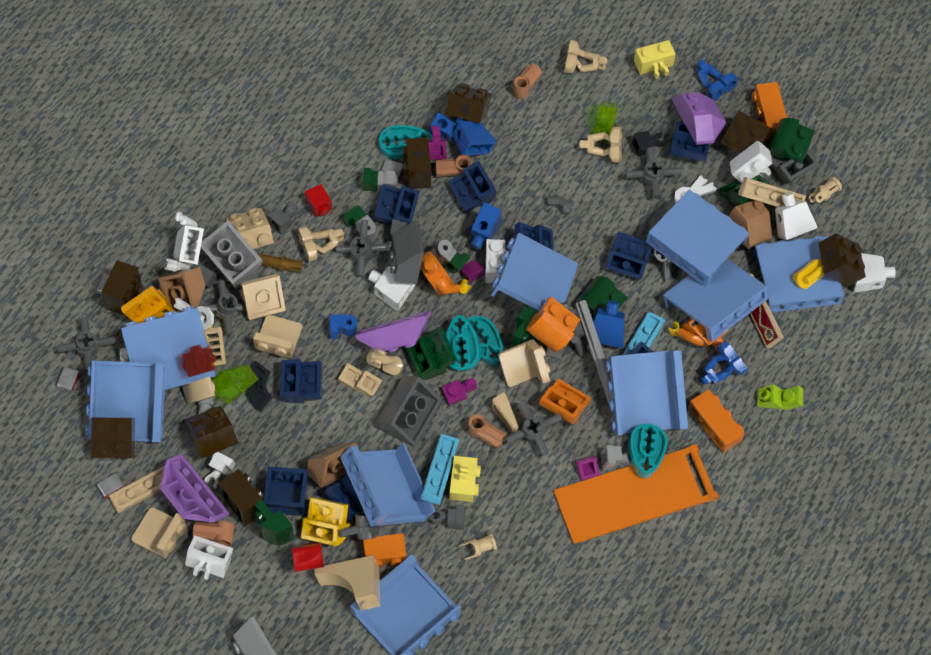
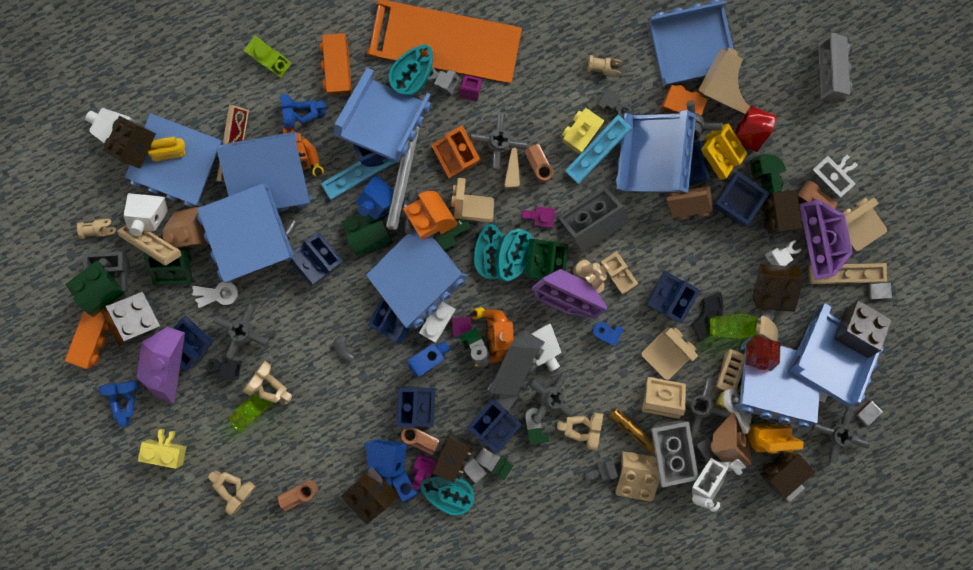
camera: 145 degrees left, 25 degrees up
(318, 200) = (561, 470): red brick -> none
(751, 162) = (146, 285): white brick -> none

